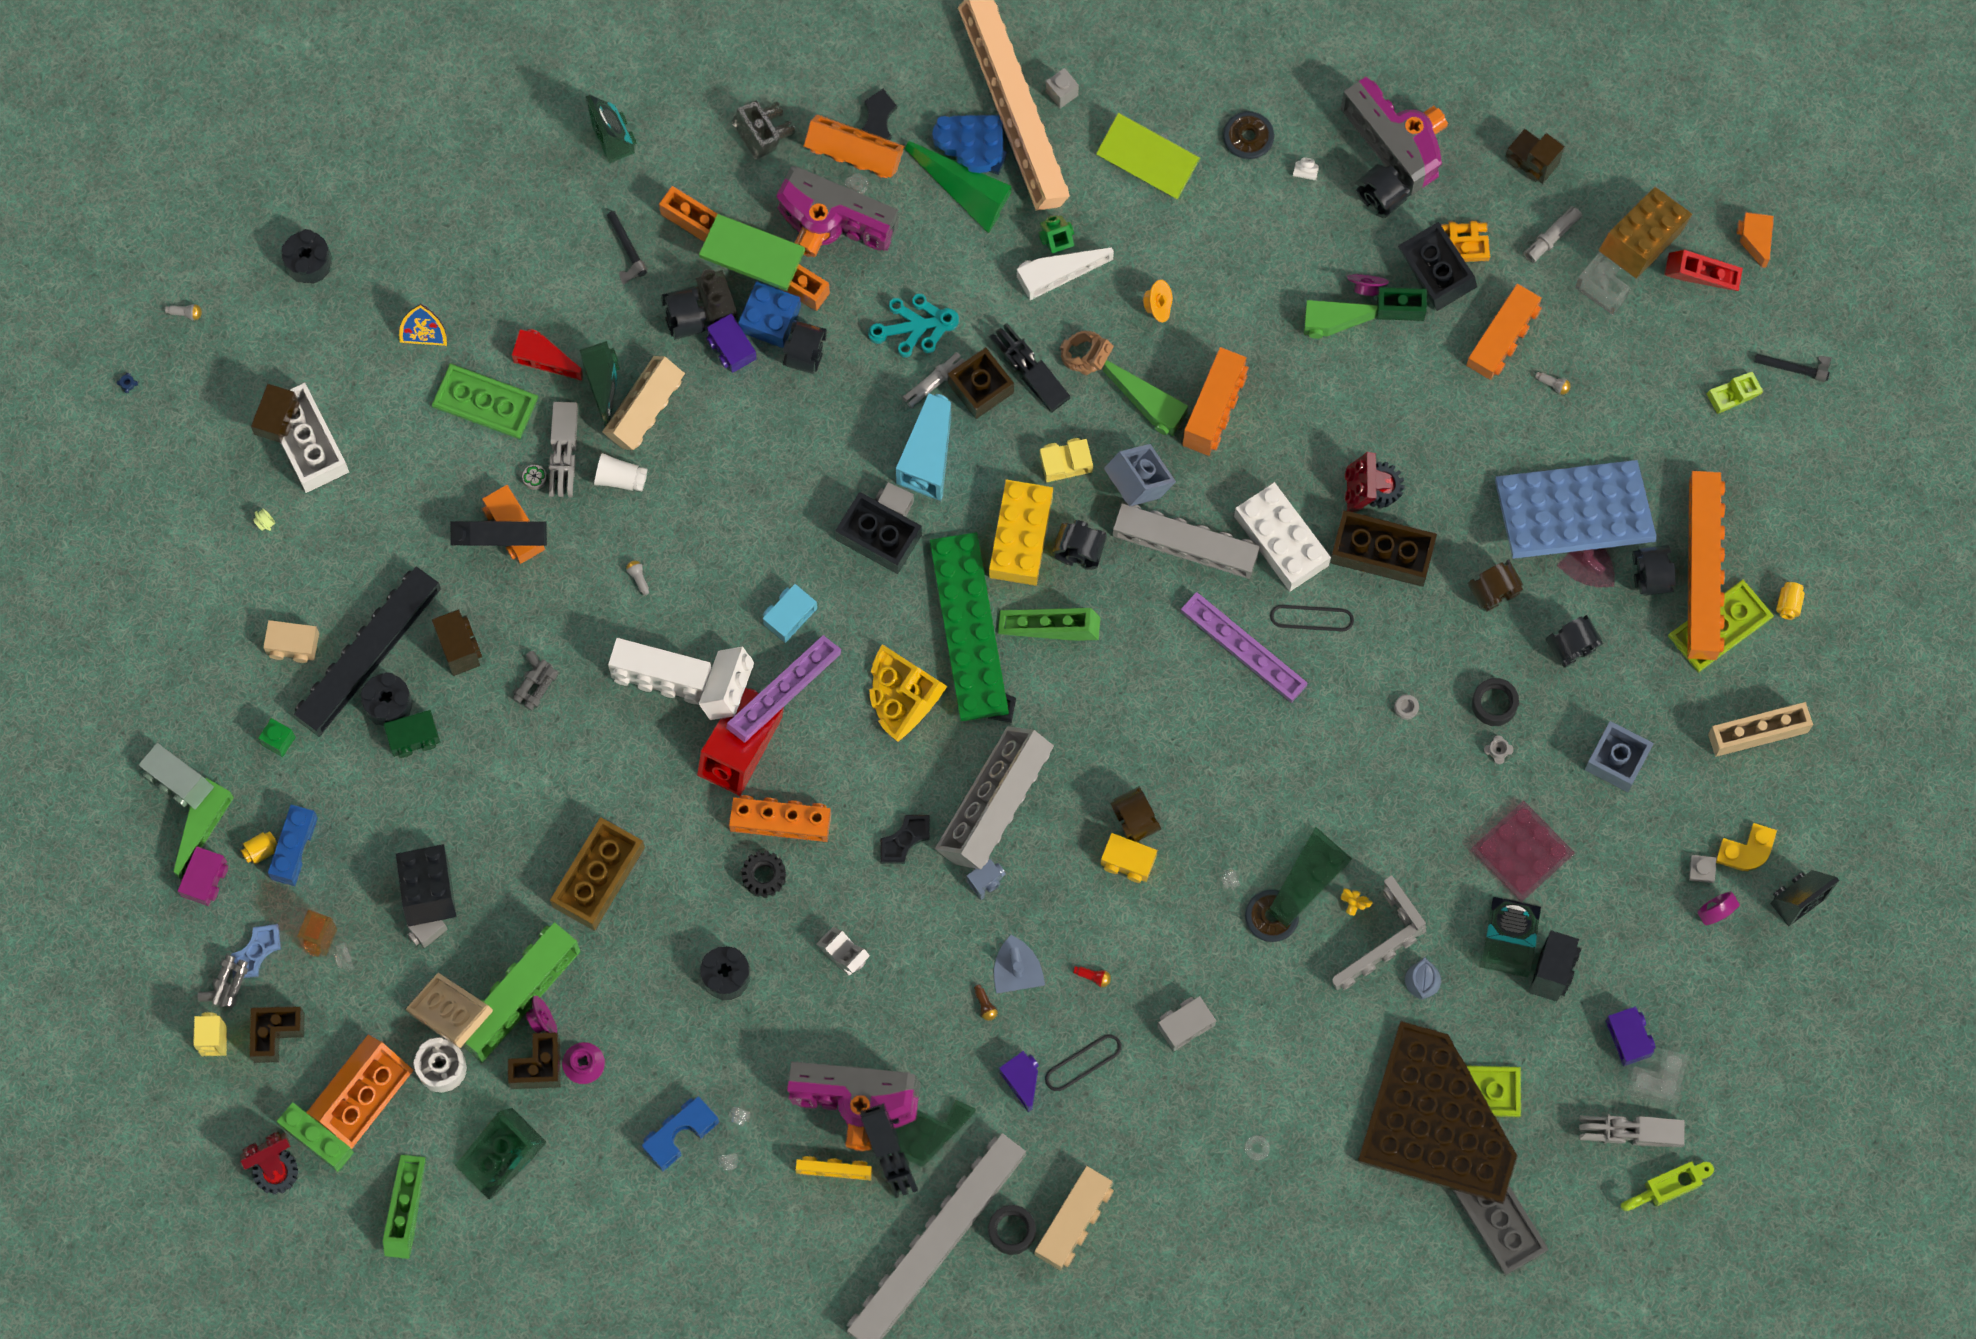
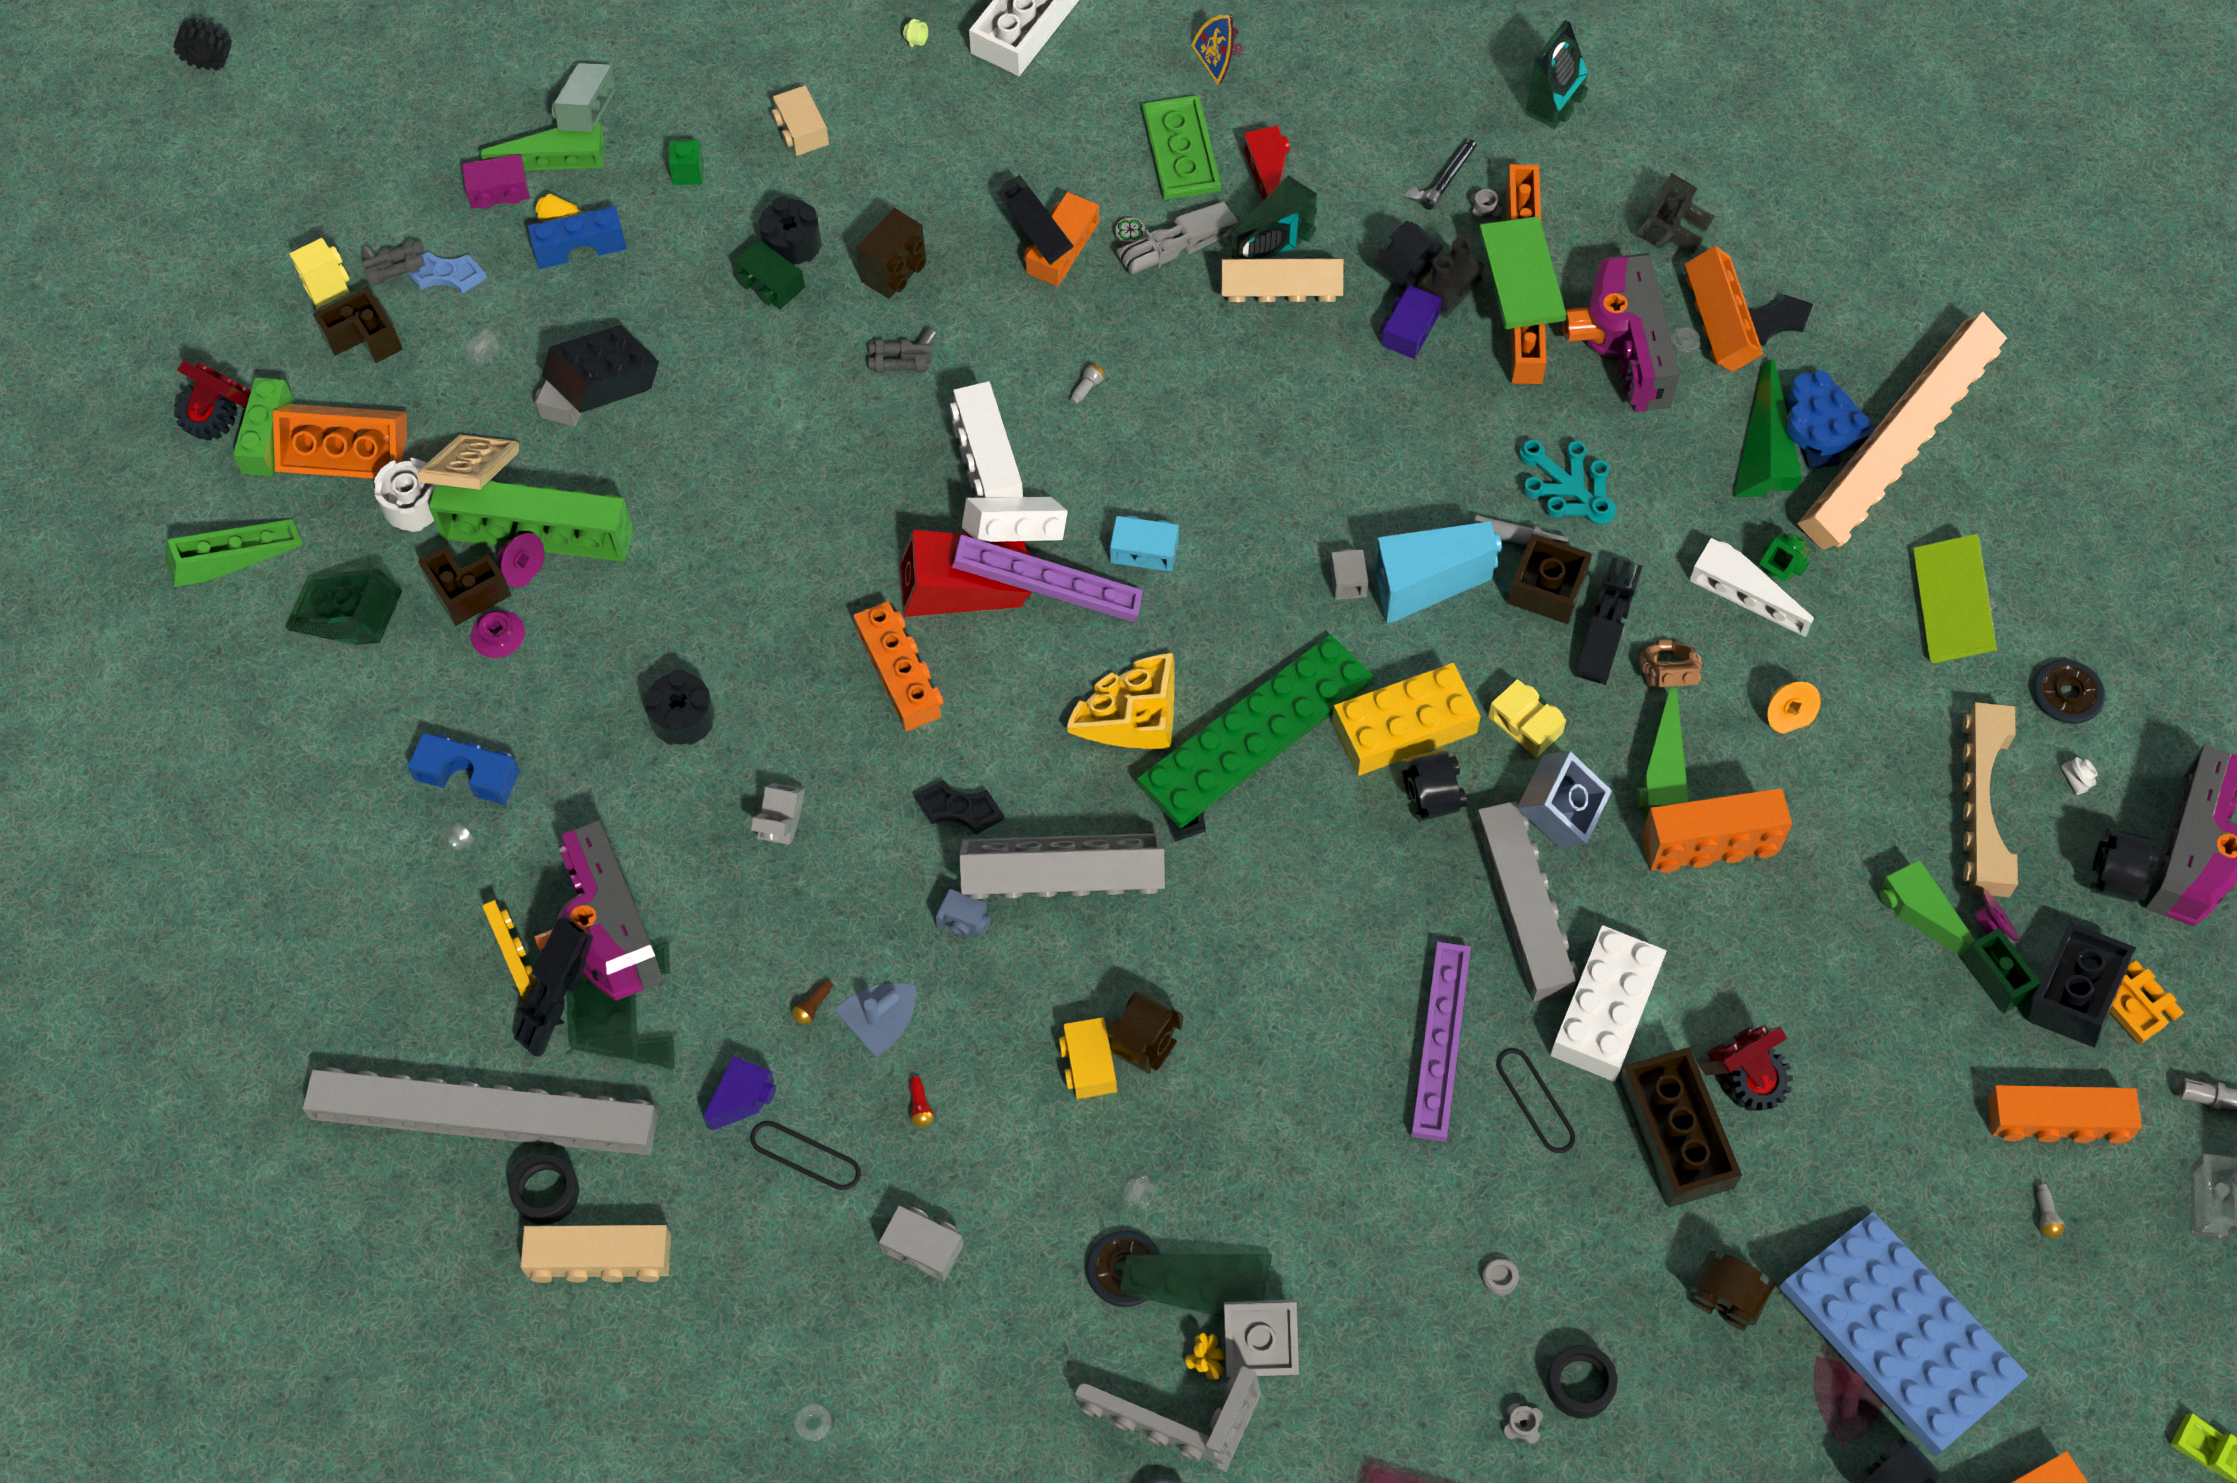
camera: 60 degrees right, 10 degrees down
(317, 933) = (487, 303): clear orange brick -> none
(367, 651) = (834, 188): black brick -> none
(597, 874) = (717, 522): pearl gold brick -> none
(619, 474) = (1186, 299): white plant -> none
(665, 230) = (1485, 196): none -> light grey plate
(739, 1115) = (522, 818): clear plate -> none
(757, 861) = (818, 669): black tyre -> none
(769, 314) = (1471, 337): blue brick -> none
(805, 347) = (1457, 385): black brick -> none
(878, 532) = (1298, 575): black brick -> none
(1061, 624) = (1321, 814): bright green slope -> none
(1062, 88) = (1959, 468): light grey brick -> none
(1330, 261) = (1990, 862): none -> tan arch
(1364, 862) = (1261, 1337): none -> light grey plate
(1574, 640) = (1729, 1430): black brick -> none

